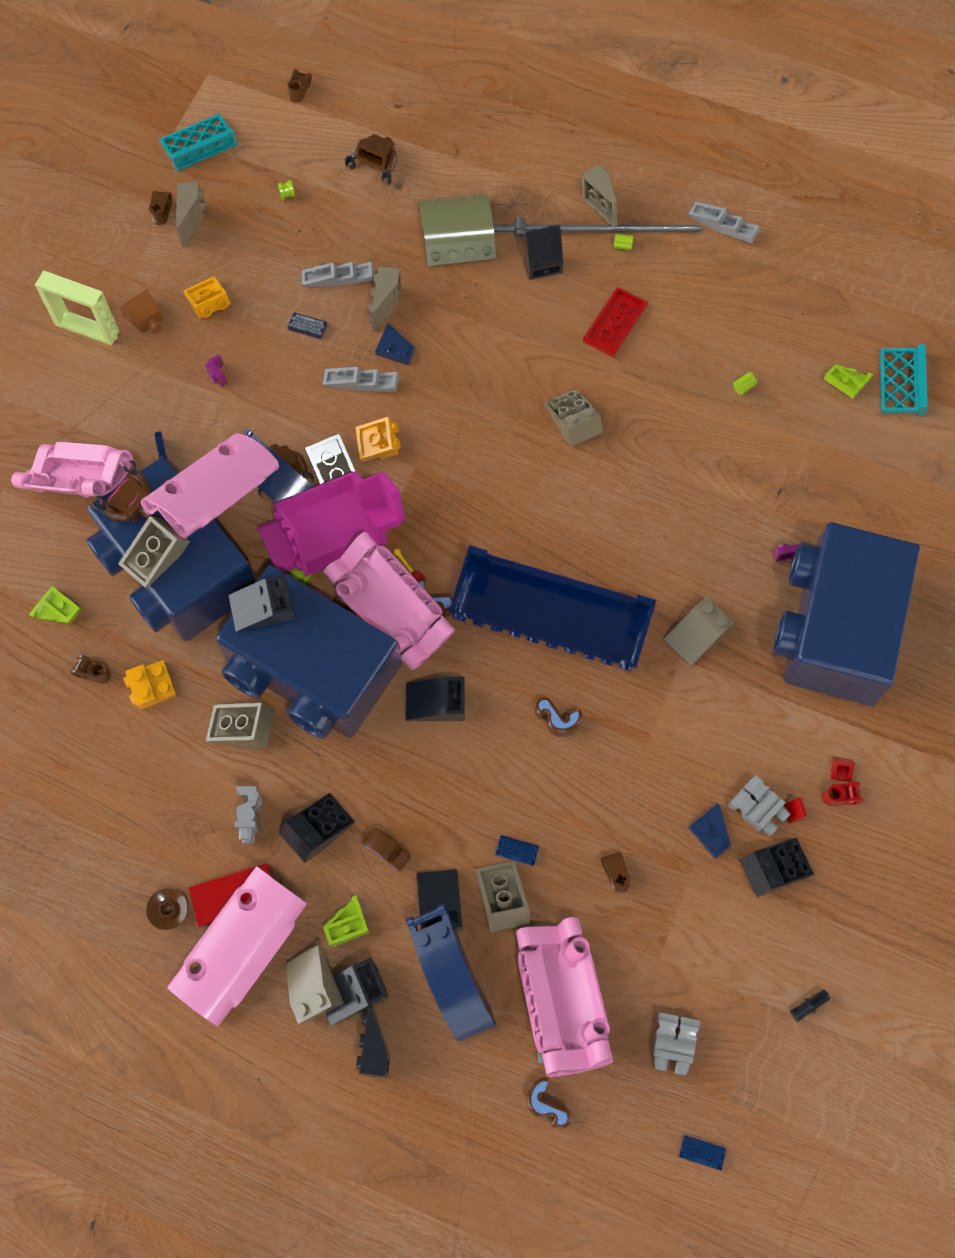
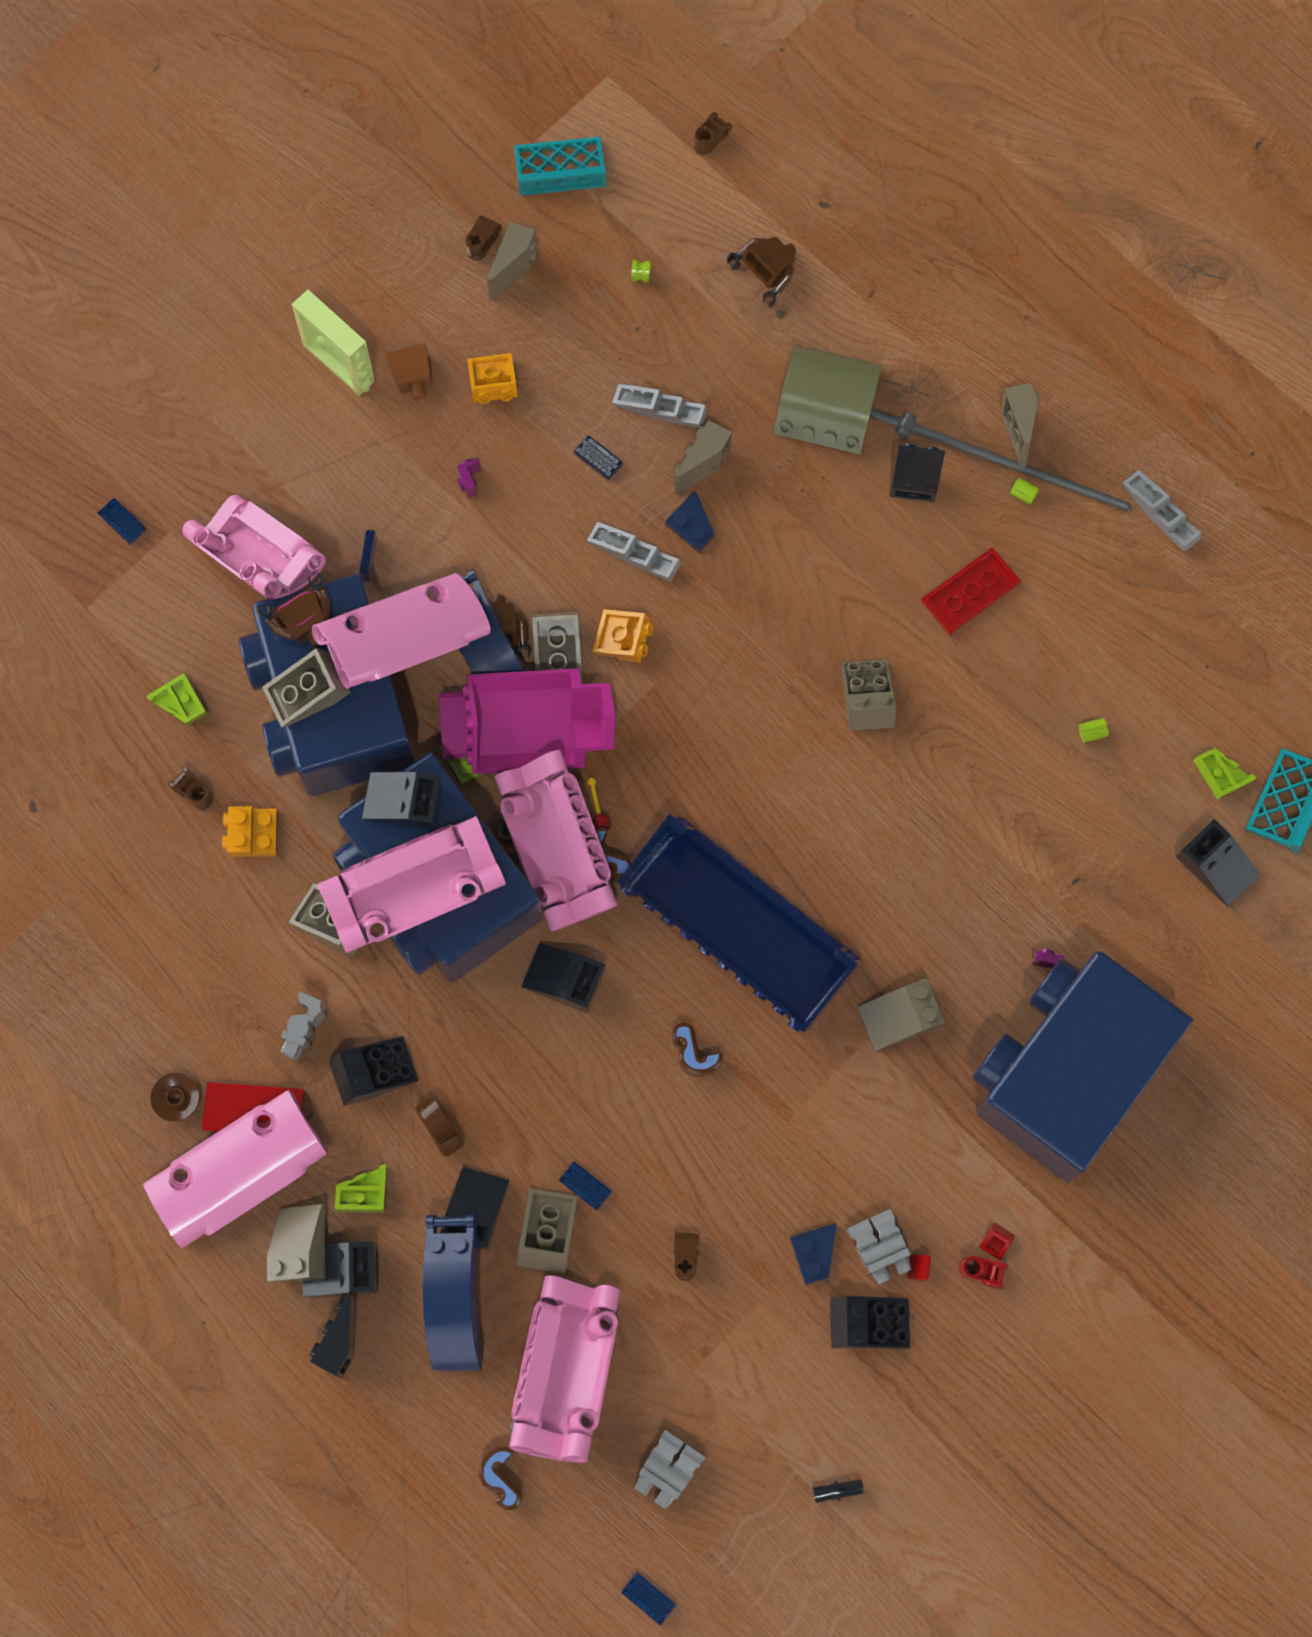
camera: 20 degrees right, 5 degrees up
(293, 665) = (411, 883): none -> bright pink panel
(874, 439) = (1219, 862): none -> black slope

